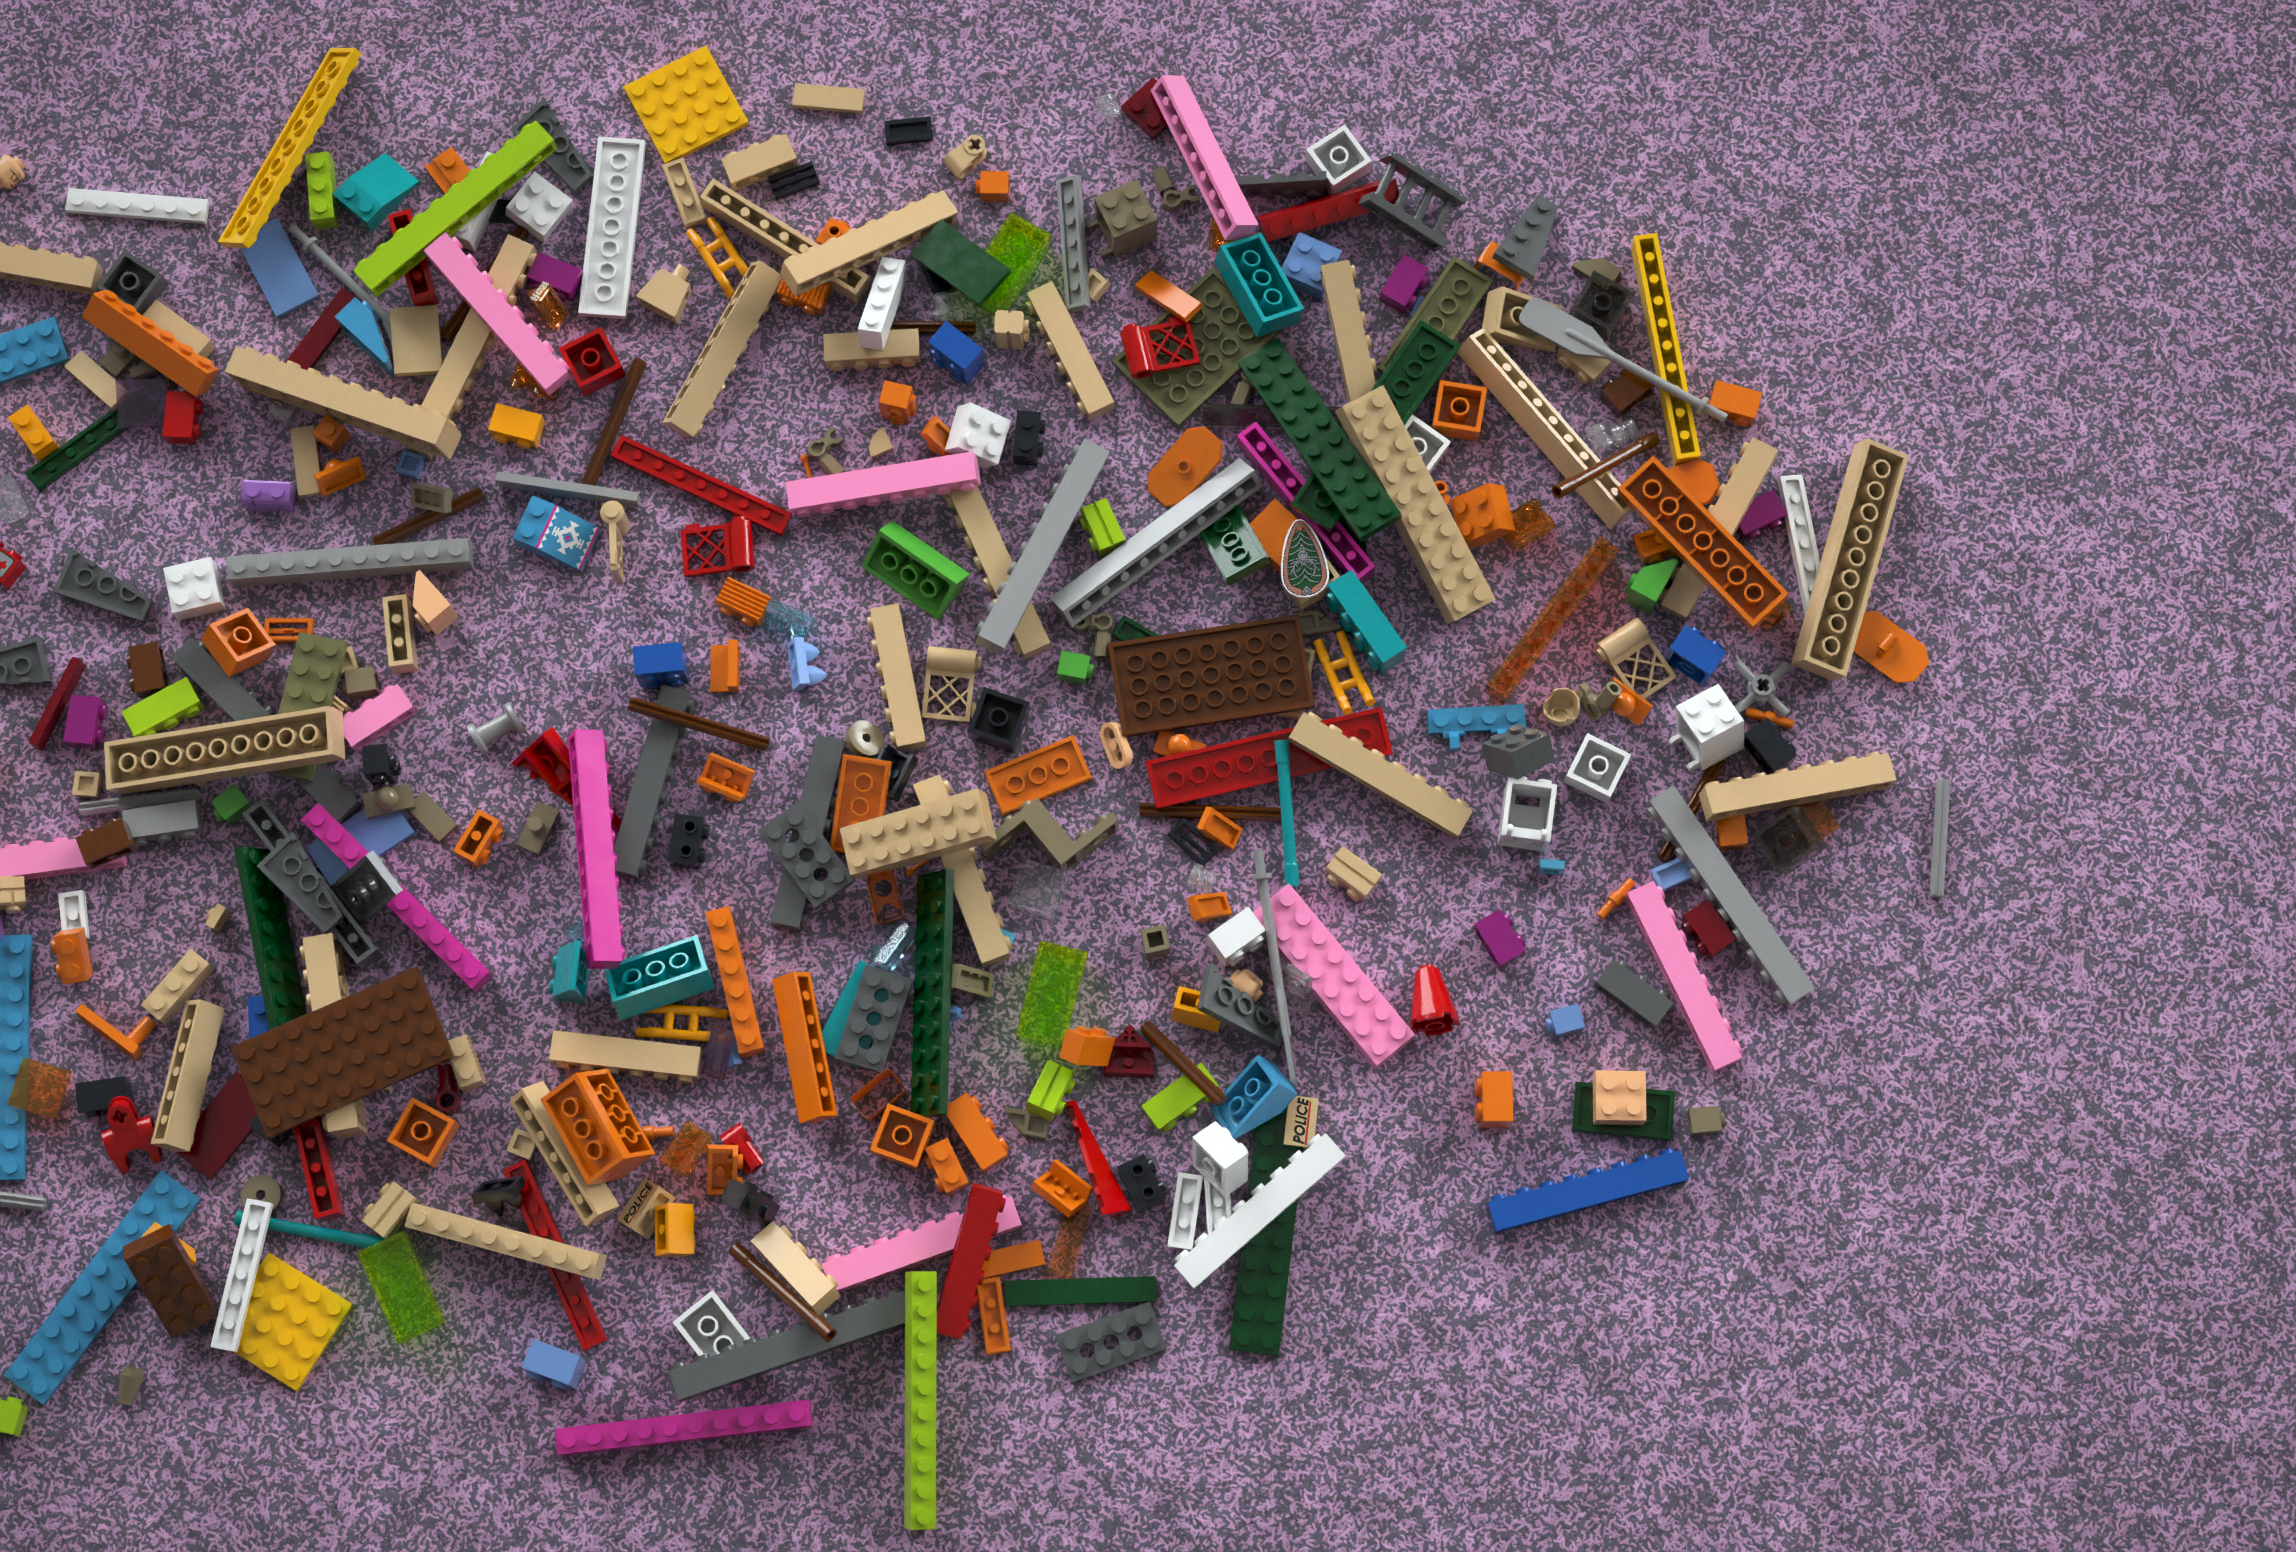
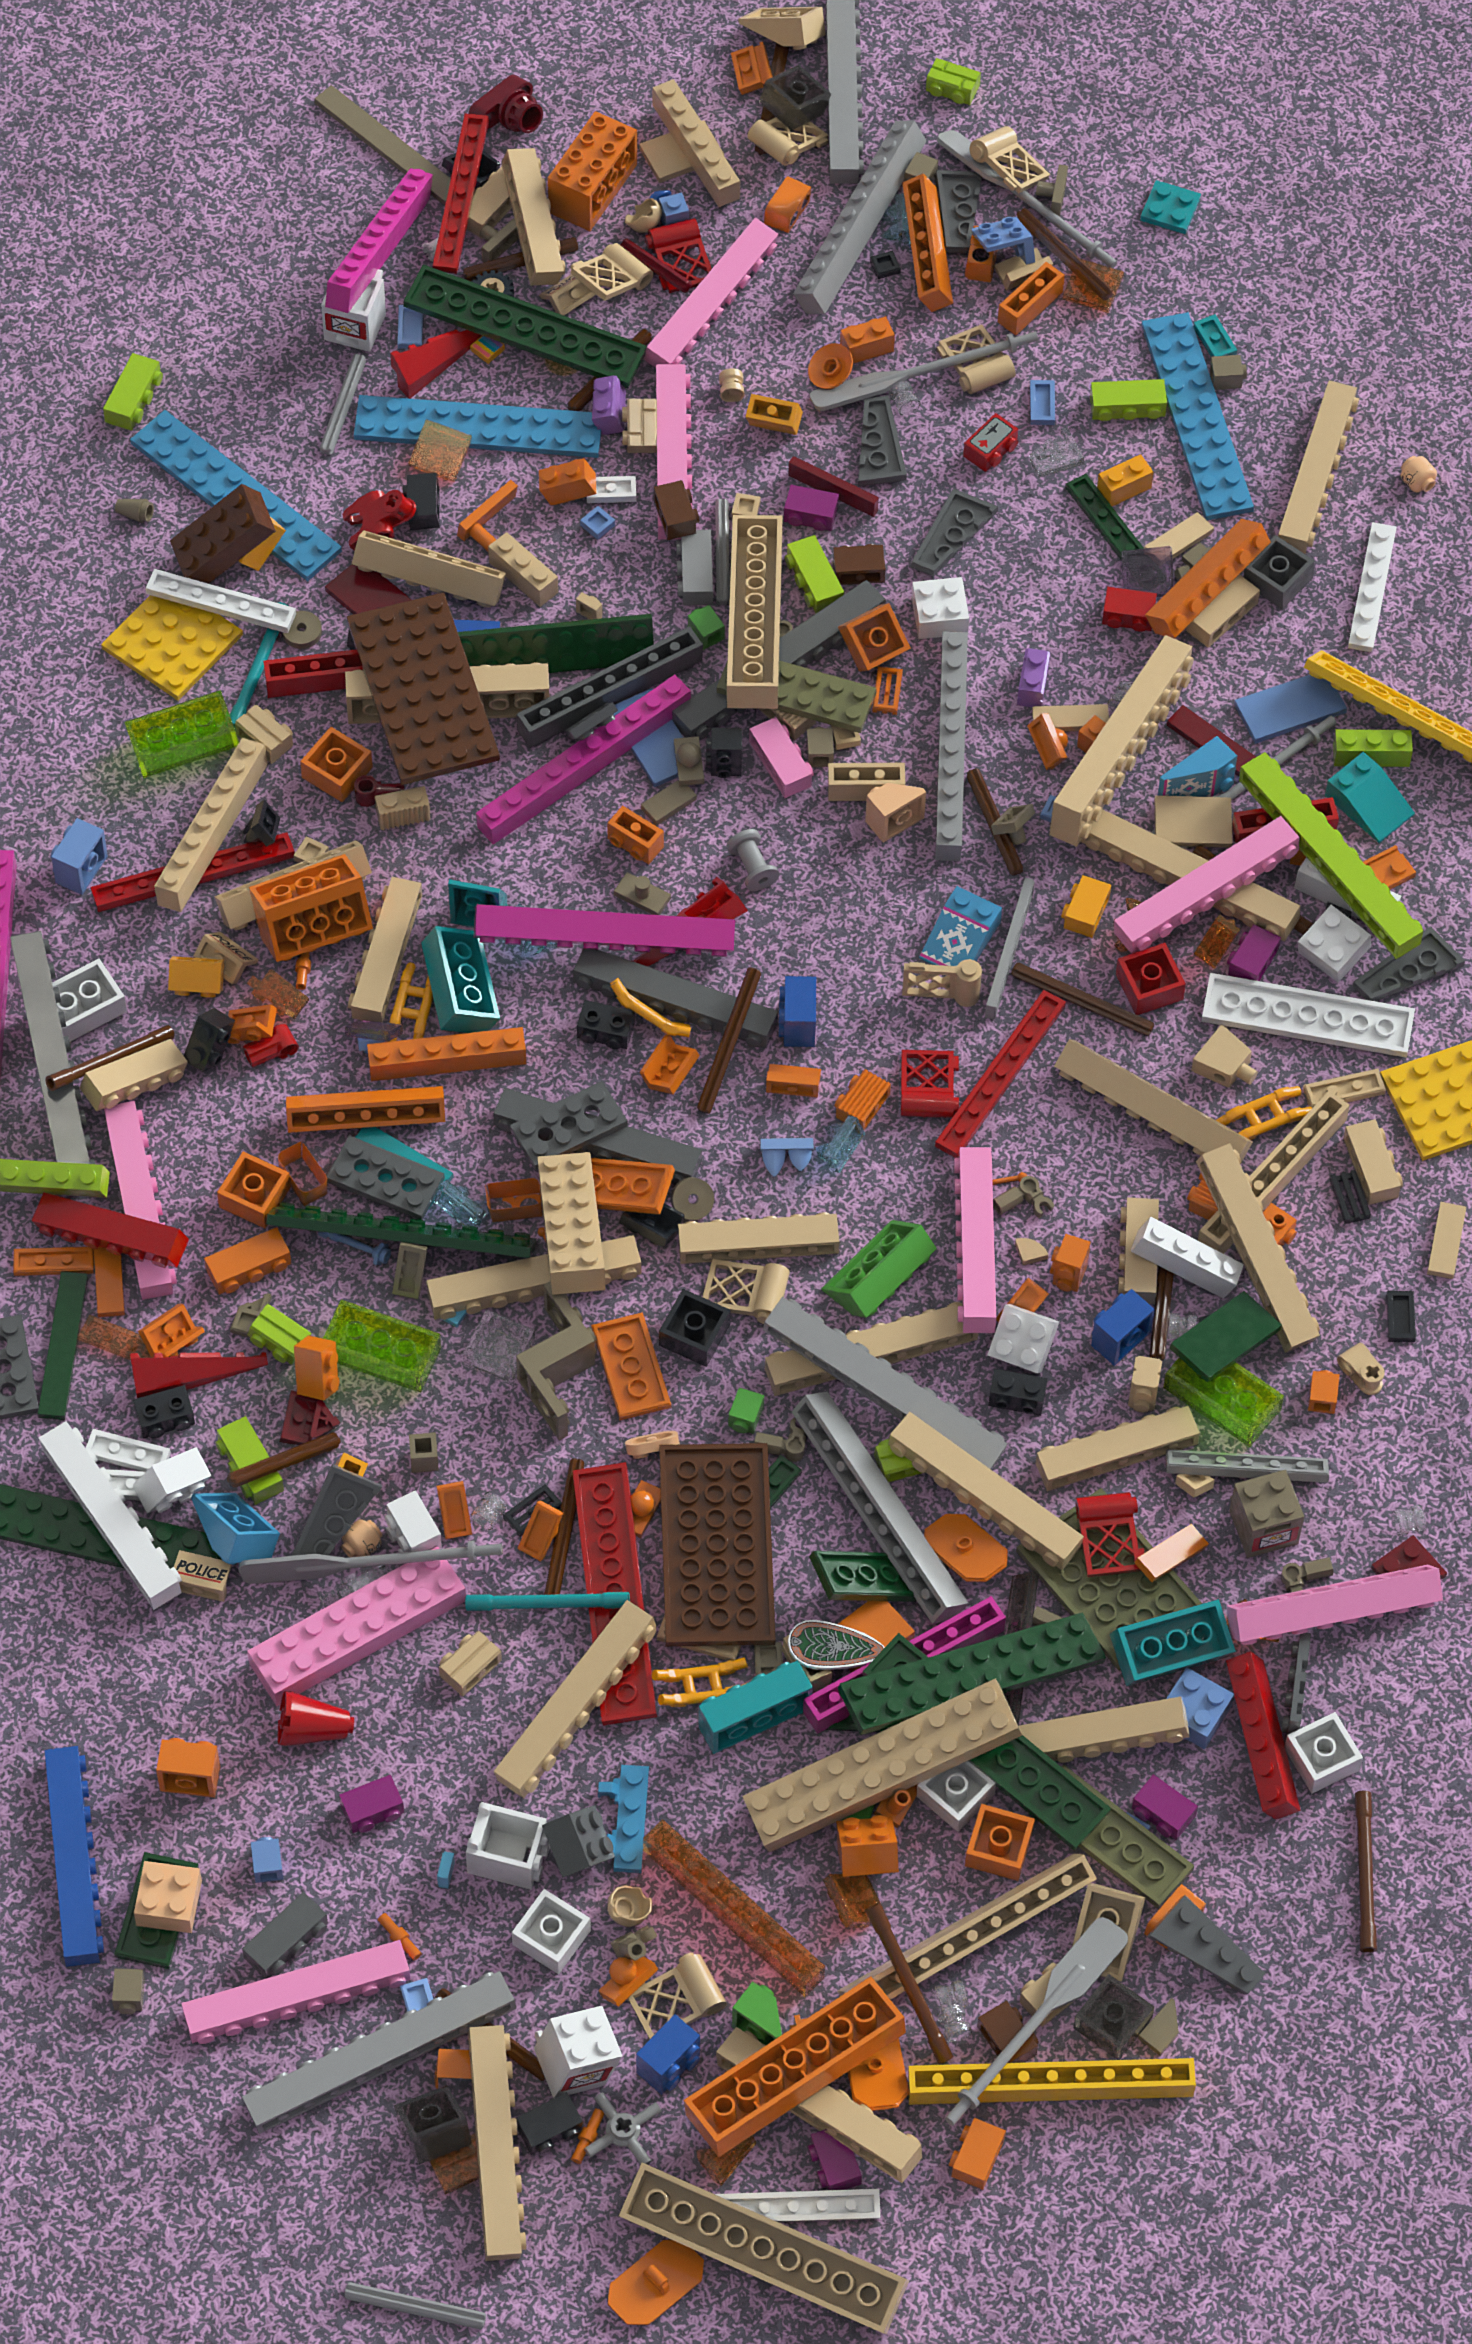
camera: 95 degrees right, 15 degrees down
(114, 924) = (597, 522): none -> medium blue plate
(298, 879) = (608, 666): dark grey wing -> none
(681, 790) = (630, 1002): none -> light orange piece
(947, 1167) = (215, 1229): orange brick -> none
(1134, 451) = (985, 1491): none -> tan brick
(1395, 214) = (1233, 1821): dark grey fence -> none
(1485, 119) = (1367, 1926): none -> reddish brown piece
(1707, 929) = (342, 2025): dark red brick -> none

